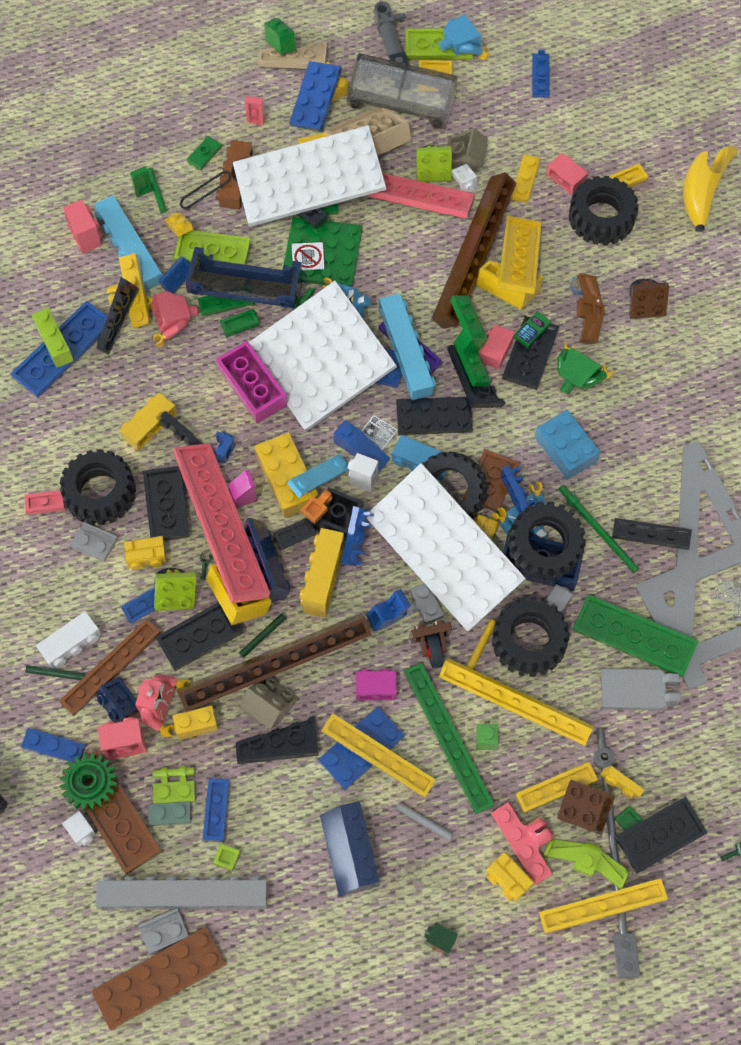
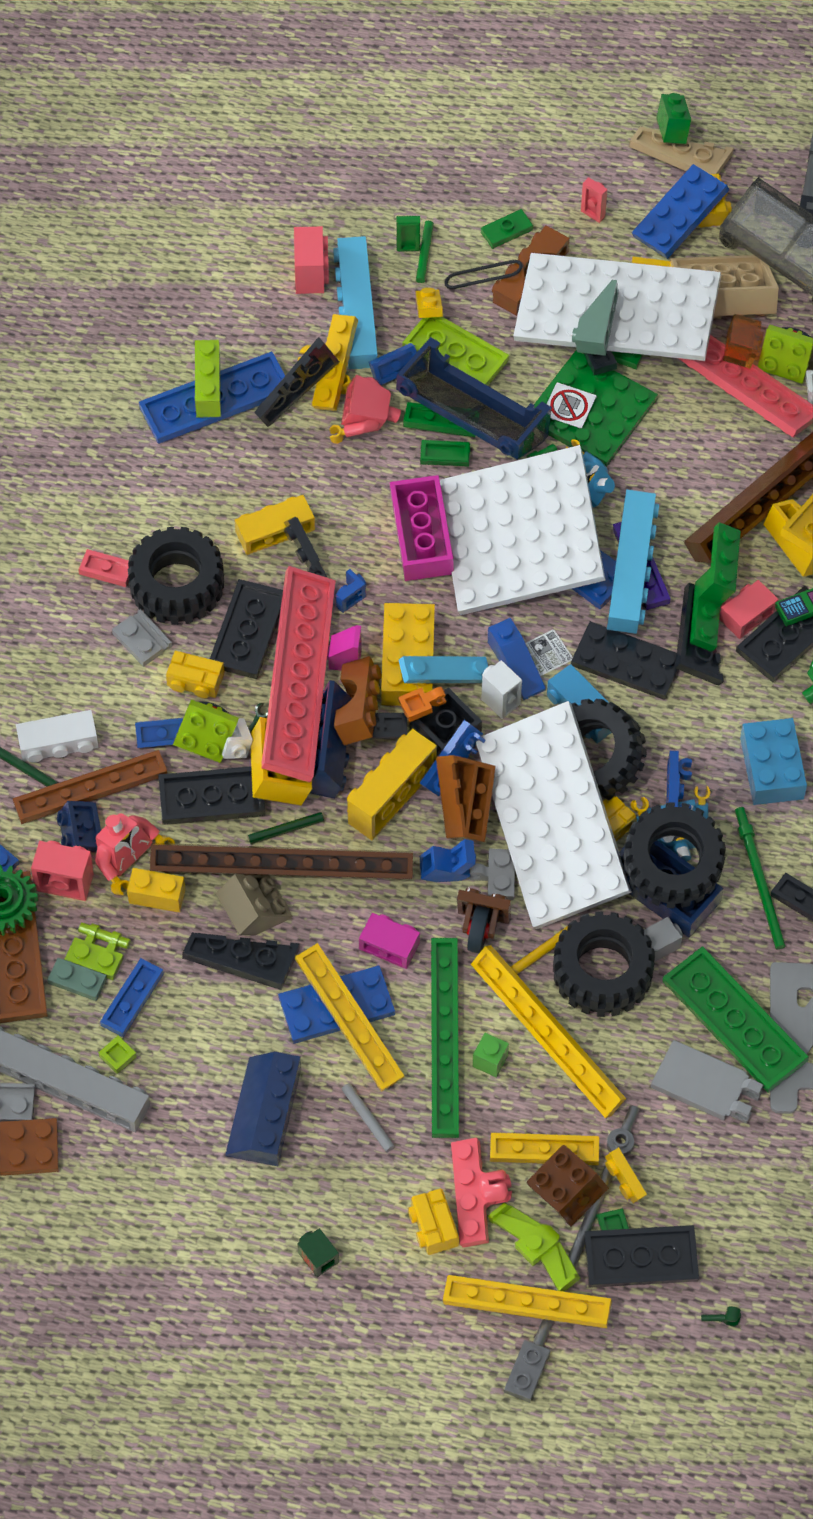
camera: 25 degrees right, 5 degrees down
(202, 590) = (240, 742): none -> white bracket
(278, 537) = (357, 717): none -> dark orange arch
(303, 194) = (596, 323): none -> sand green slope
(379, 560) = (465, 796): none -> dark orange wedge
(401, 167) = (743, 341): none -> clear orange brick
(492, 465) = (653, 778): dark orange plate -> none

